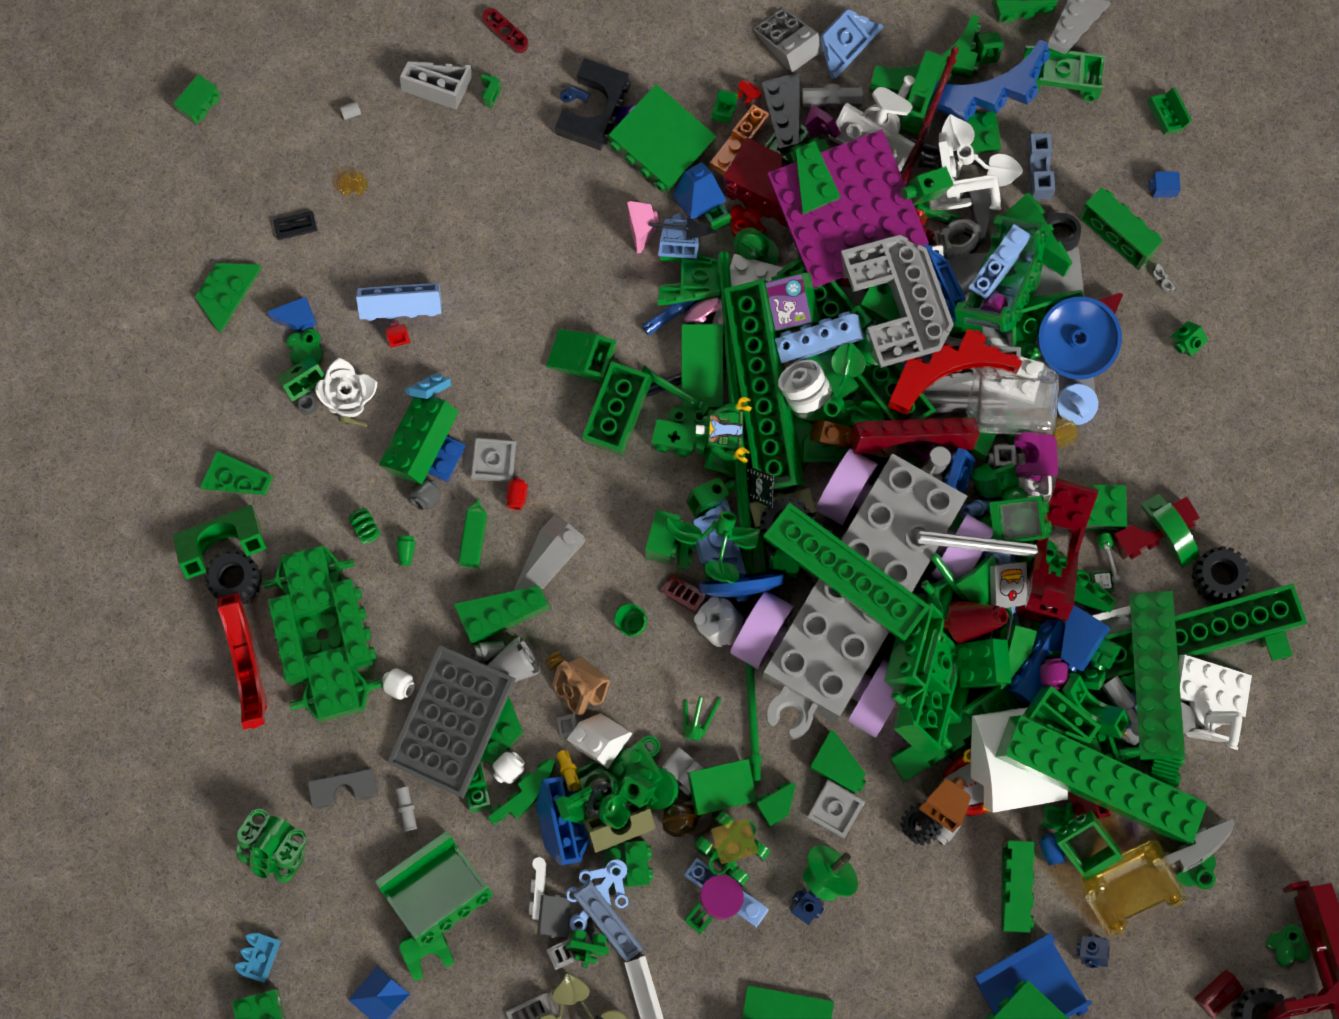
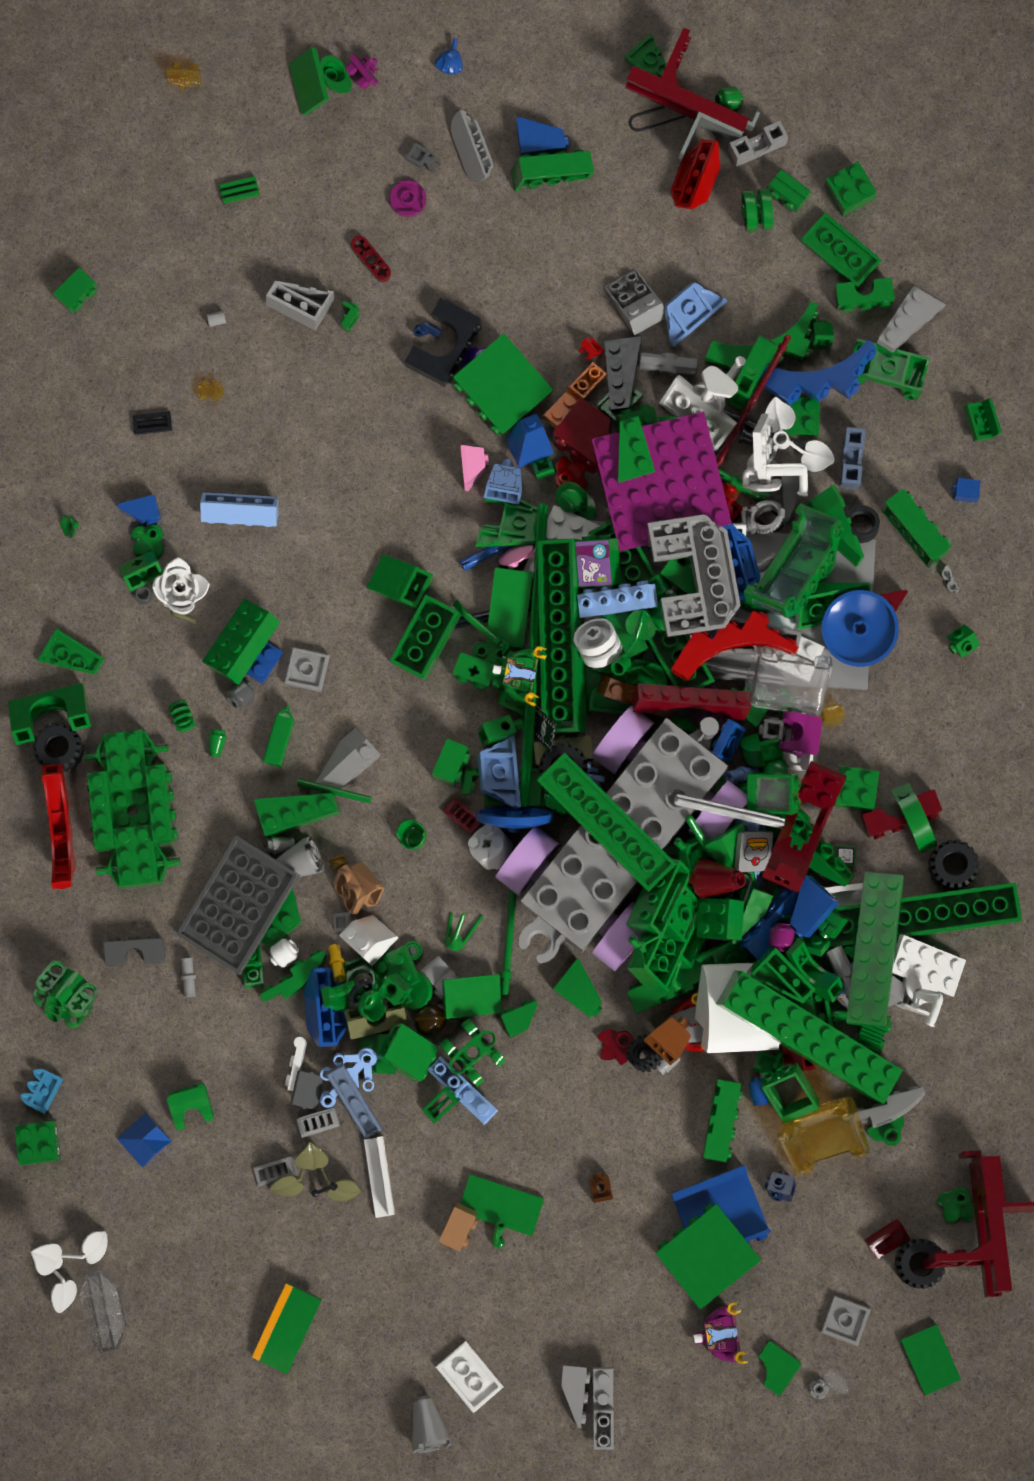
camera: 10 degrees right, 5 degrees up
(217, 342) = (68, 525): none -> green plant
(225, 290) = (80, 477): green wing -> none
(397, 334) = (234, 540): red tile -> none
(398, 684) = (195, 864): white head -> none
(428, 386) = (255, 594): dark azure plate -> none
(434, 889) = (204, 1052): green panel -> none
(516, 494) = (323, 704): red brick -> none
(552, 585) = (334, 790): none -> green bar
(578, 944) = (341, 1123): green hips -> none
(660, 858) = (408, 1052): none -> green brick
(693, 228) = (519, 477): black piece -> none
(721, 897) = (456, 1094): magenta tile -> none
(724, 106) = (566, 361): green bracket -> none
(734, 841) = (474, 1046): clear yellow piece -> none
(741, 537) = (521, 774): green plant -> none
(802, 910) = (526, 1113): dark blue brick -> none
(820, 122) = (651, 389): magenta slope -> none
(829, 873) = (556, 1086): green piece -> none
(836, 808) = (571, 1029): light grey plate -> none
(884, 822) = (613, 1047): none -> dark red plate
(895, 989) = (597, 1195): none -> reddish brown brick
(921, 188) = (737, 471): green torso -> none
(995, 303) = (783, 589): magenta brick -> none
(1000, 262) = (795, 550): light blue slope -> none
(1030, 351) = (813, 633): green piece -> none
(1077, 403) = (849, 688): light blue tile -> none
(1105, 542) = (854, 820): hinge -> none
(1132, 839) = (832, 1093): arm -> none
(1277, 646) = (993, 937): green panel -> none

